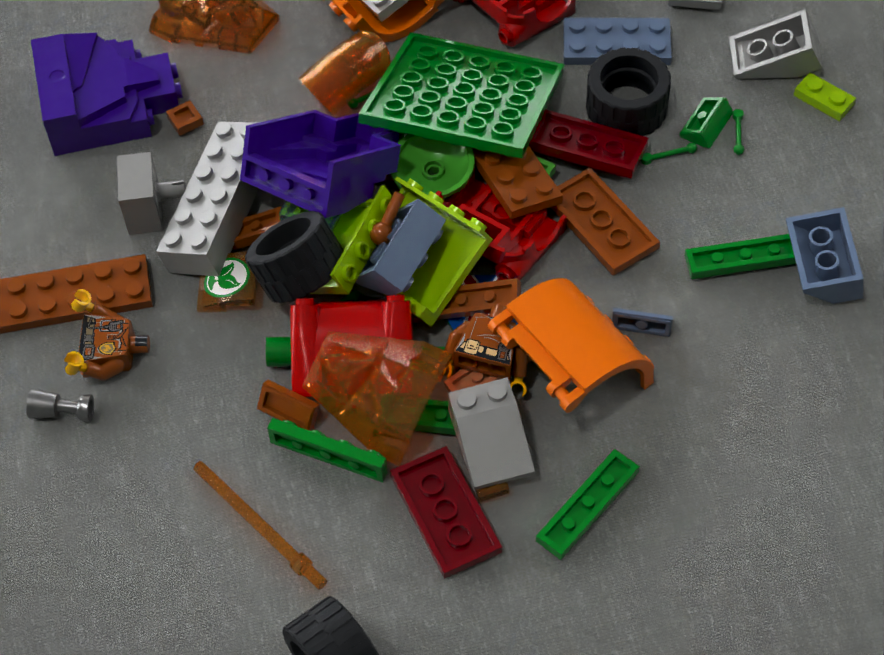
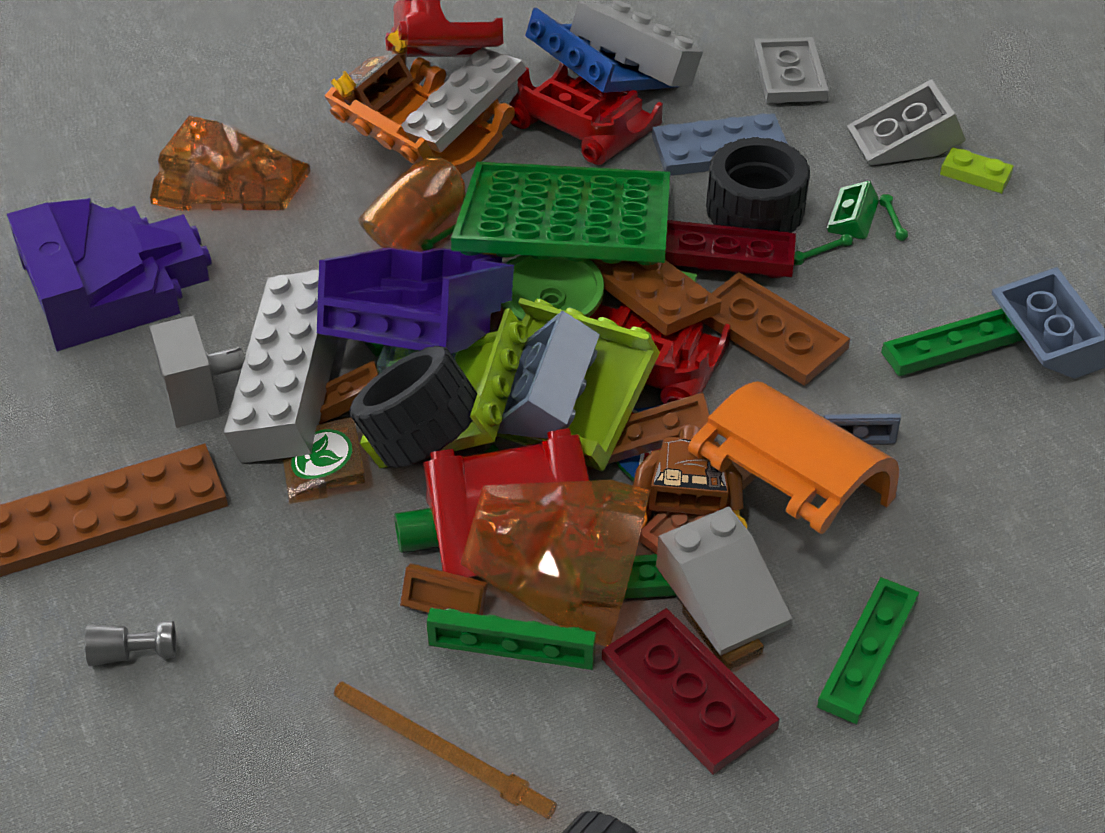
camera: 15 degrees left, 10 degrees down
(105, 341) = (175, 551): torso -> none
(184, 118) = (219, 285): dark orange plate -> none
(383, 229) = (520, 358): dark orange bar -> none

